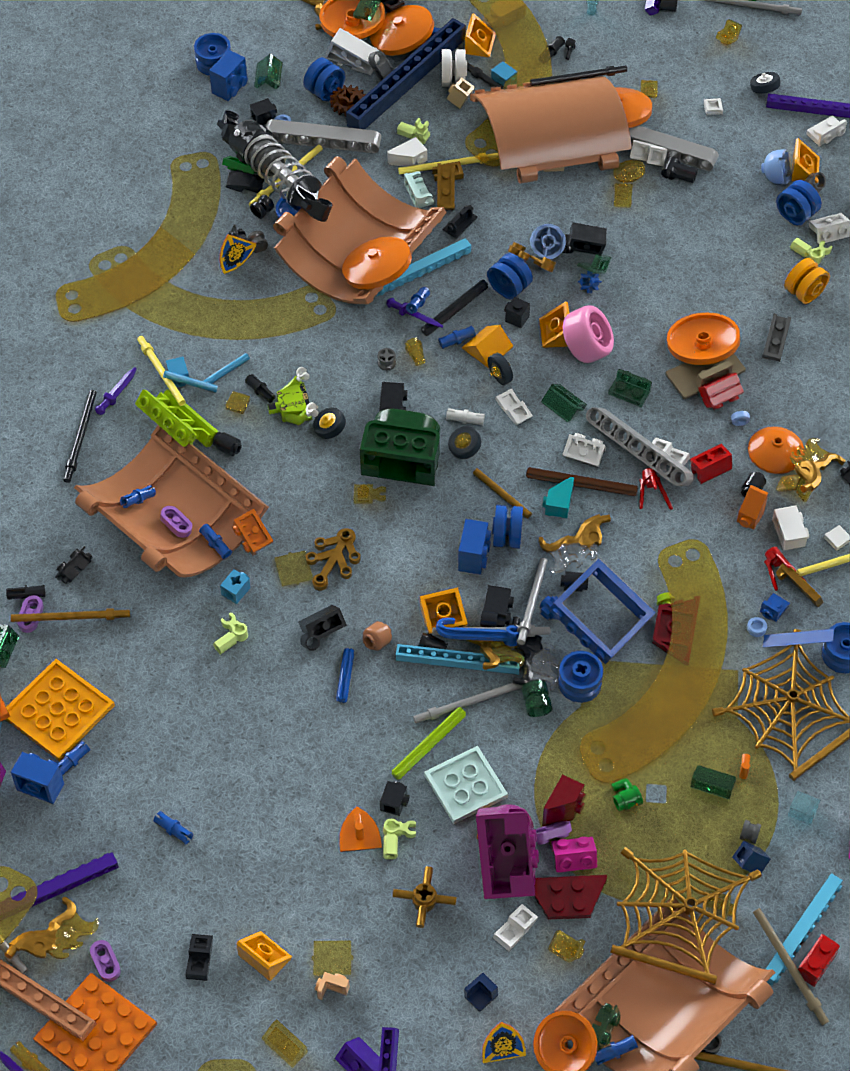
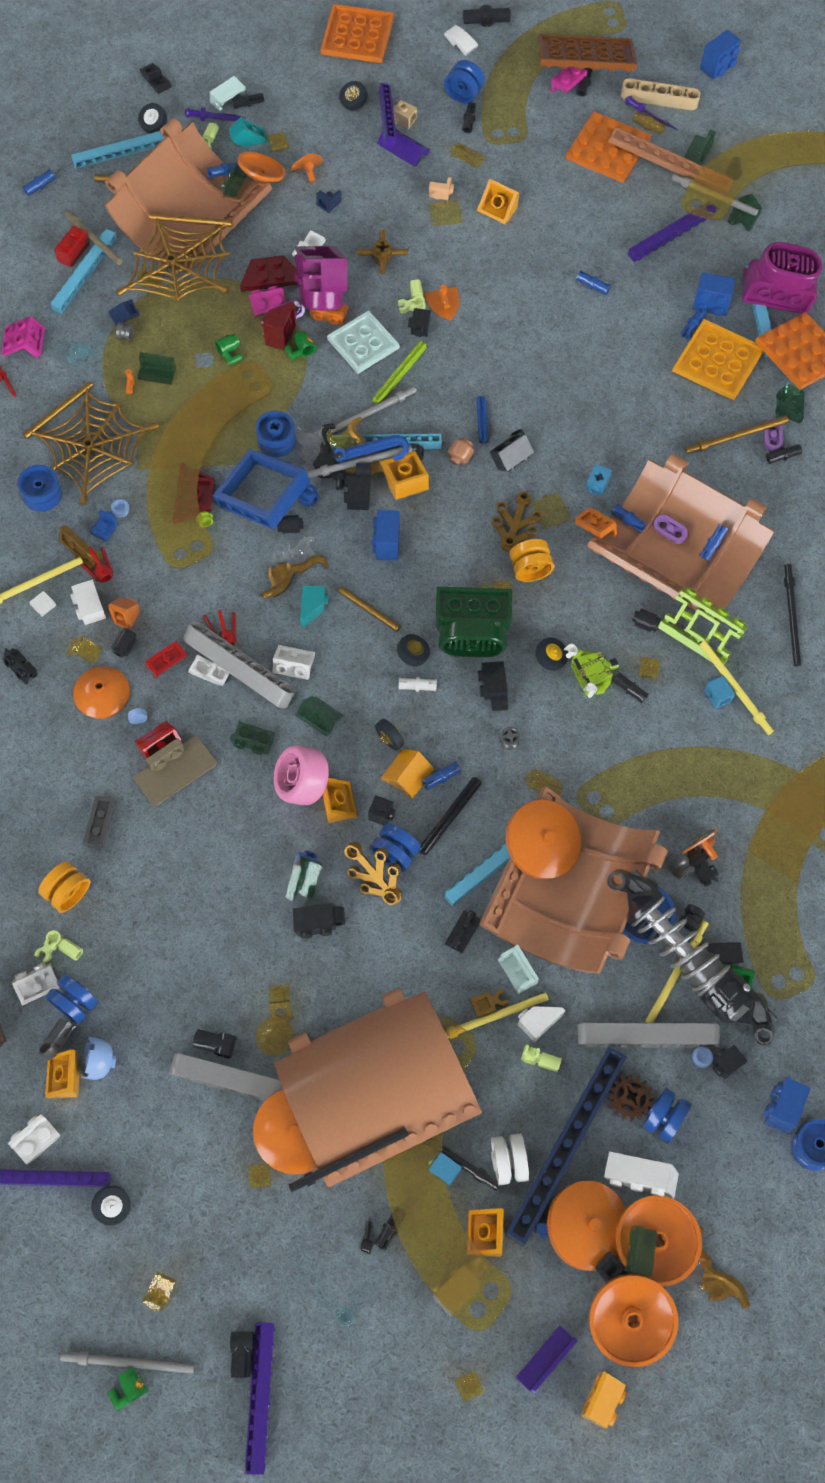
camera: 170 degrees right, 10 degrees up
(60, 935) = (656, 198): piece -> none
(68, 571) = (753, 480): black hinge -> none
(105, 962) = (618, 190): medium lavender plate -> none
(110, 398) = (777, 658): dark purple sword -> none
(190, 381) = (702, 677): dark azure bar -> none
(199, 957) = (546, 199): black slope -> none
(228, 368) = (672, 707): dark azure bar -> none
(238, 633) = (585, 442): yellowish green bar -> none
(269, 72) = (740, 1133): clear green panel -> none
(329, 502) = (531, 560): none -> light orange wheel
(362, 322) = (544, 780): none -> clear yellow plate
(384, 68) = (596, 1150): dark grey piece -> none
(402, 310) = (502, 802): dark purple sword -> none
(415, 350) = (481, 752): clear yellow cone -> none
(418, 300) = (490, 812): blue pin -> none
(446, 186) = (487, 973): pearl gold hinge -> none
(460, 92) = (494, 1123): tan brick -> none
(507, 526) = (358, 558): blue wheel -> none
(513, 407) = (370, 703): white slope -> none
(525, 626) = (329, 461): light grey bar -> none
(536, 698) = (312, 413): clear green wheel -> none
(536, 787) = (305, 346): none -> green piece
(547, 241) = (359, 905): light blue cylinder -> none
(566, 946) = (266, 236): clear yellow bracket -> none
(581, 481) = (298, 629): reddish brown axle -> none
(648, 152) = (247, 1062): white slope -> none
(703, 338) = (178, 800): orange dish -> none
(713, 106) = (177, 1162): white tile -> none
(796, 638) = (81, 489): sticker -> none
(811, 461) = (66, 672): pearl gold piece -> none

